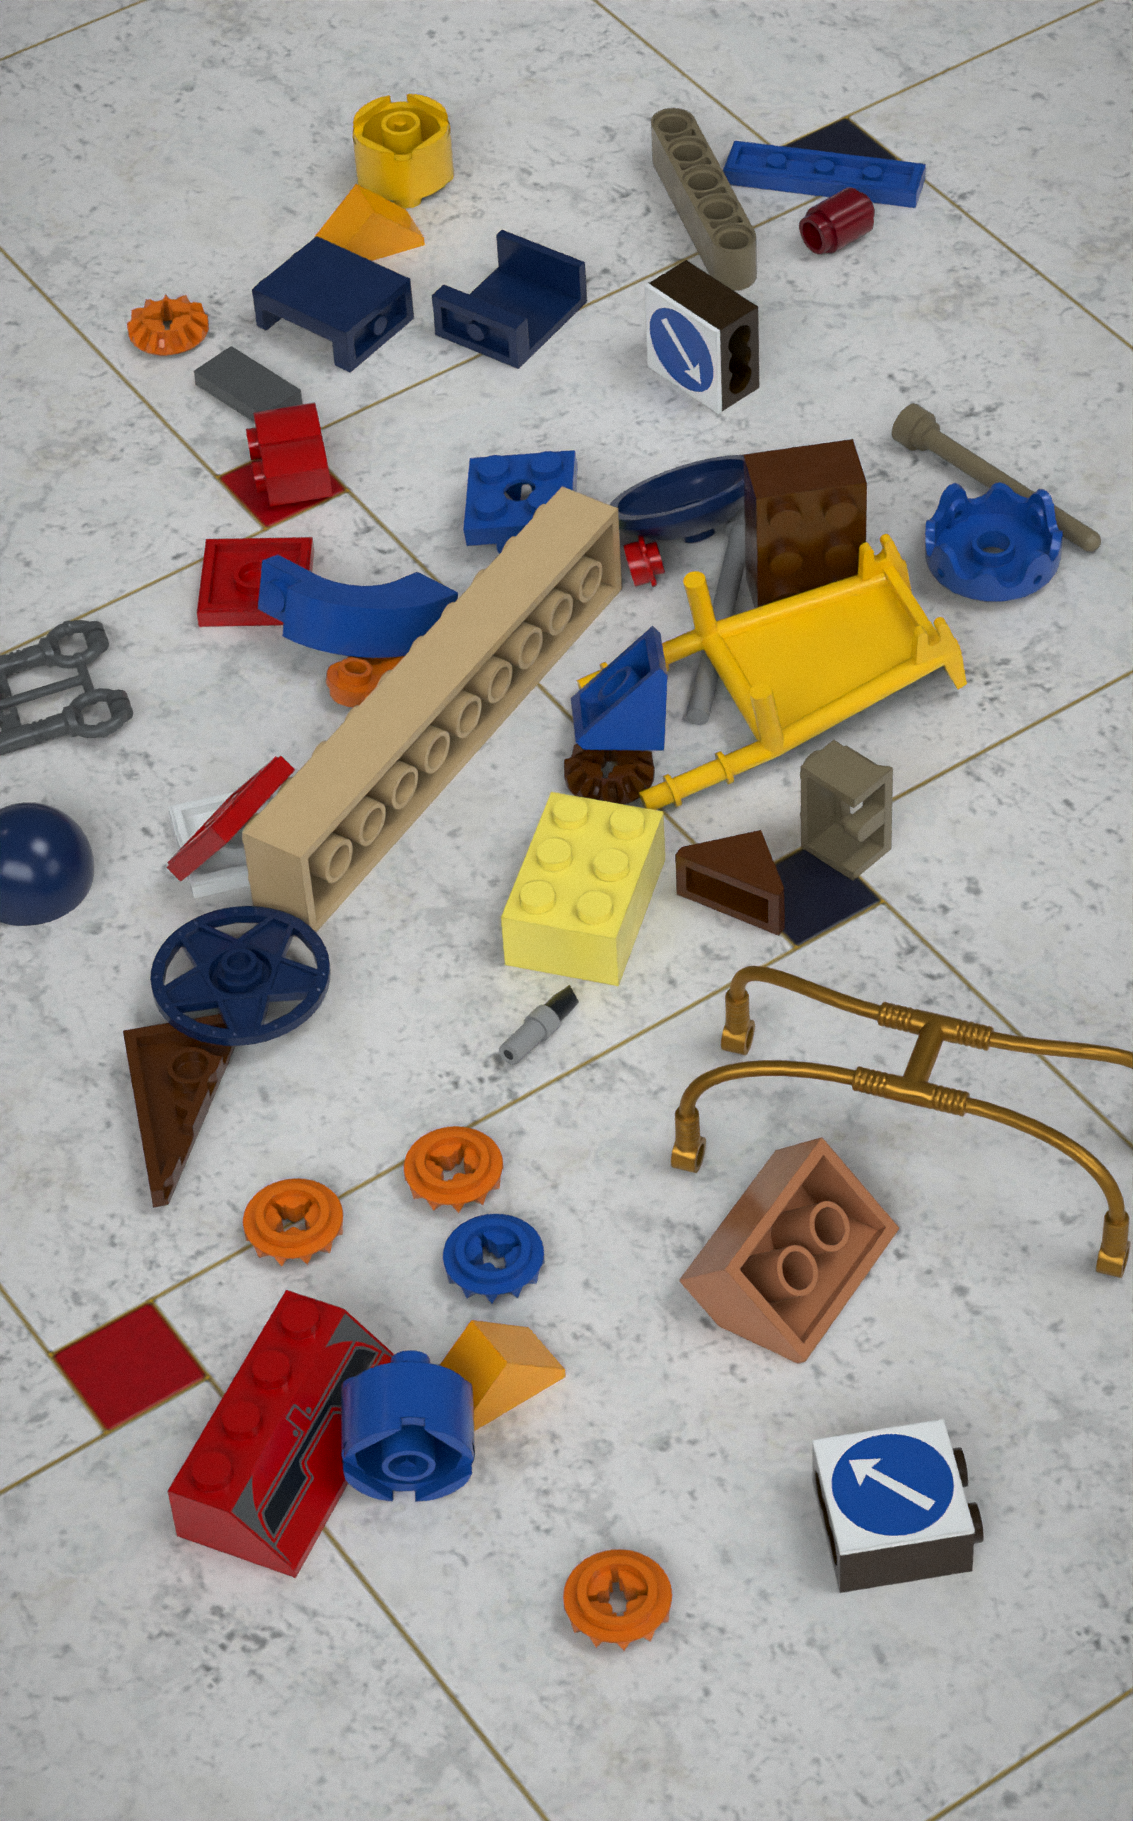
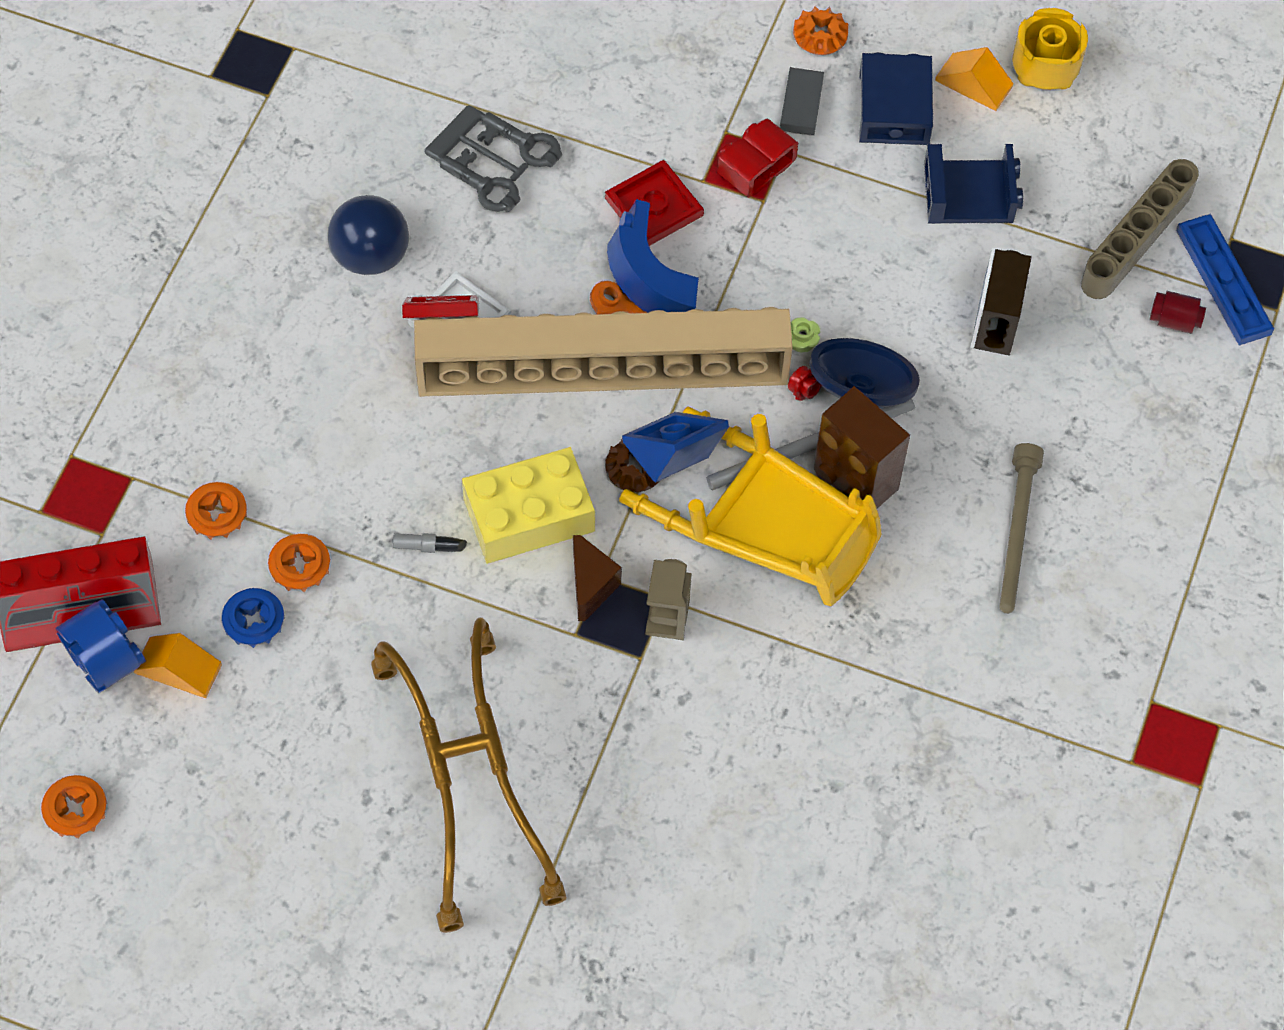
camera: 50 degrees right, 15 degrees up
(172, 1094) = (267, 397): reddish brown wing -> none
(240, 975) = (352, 381): dark blue wheel -> none
(494, 517) = (826, 298): blue piece -> none
(791, 1251) = (342, 758): nougat slope -> none
(895, 1505) = (205, 903): piece -> none
(1000, 520) = (957, 532): blue plate -> none

